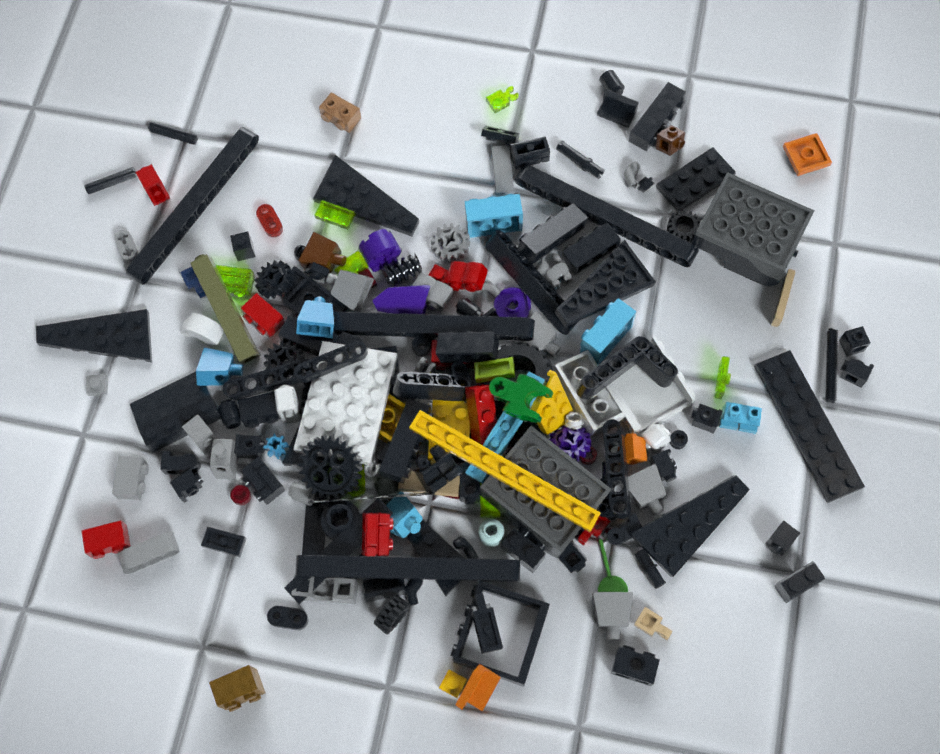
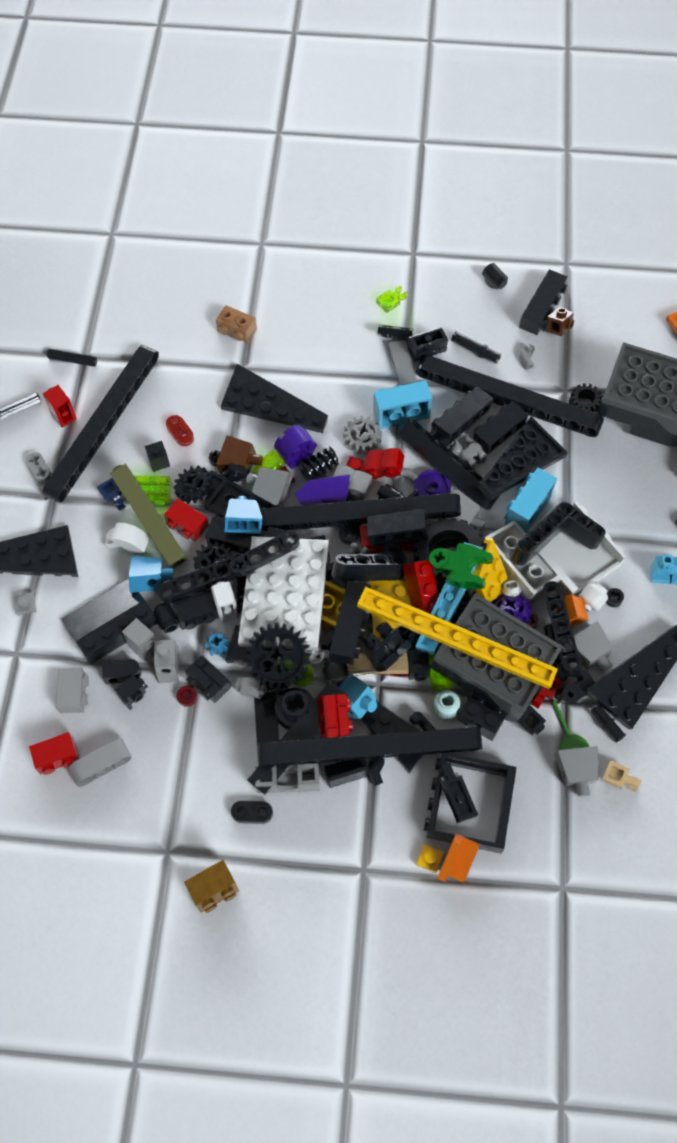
camera: 10 degrees left, 5 degrees down
(223, 541) = (176, 743): black plate -> none
(241, 449) = (189, 653): black brick -> none
(335, 215) = (244, 419): clear neon green plate -> none
(391, 614) = (359, 795): black tyre -> none
(488, 370) = (423, 546): lime tile -> none
(618, 108) = (504, 298): black panel -> none
(622, 667) = (598, 822): black brick -> none
(645, 184) = (542, 364): black plate -> none
(665, 465) = (607, 621): black brick -> none
(695, 179) = (588, 356): black plate -> none
(707, 424) = (638, 574): black brick -> none
(723, 377) = (647, 535): clear neon green plate -> none

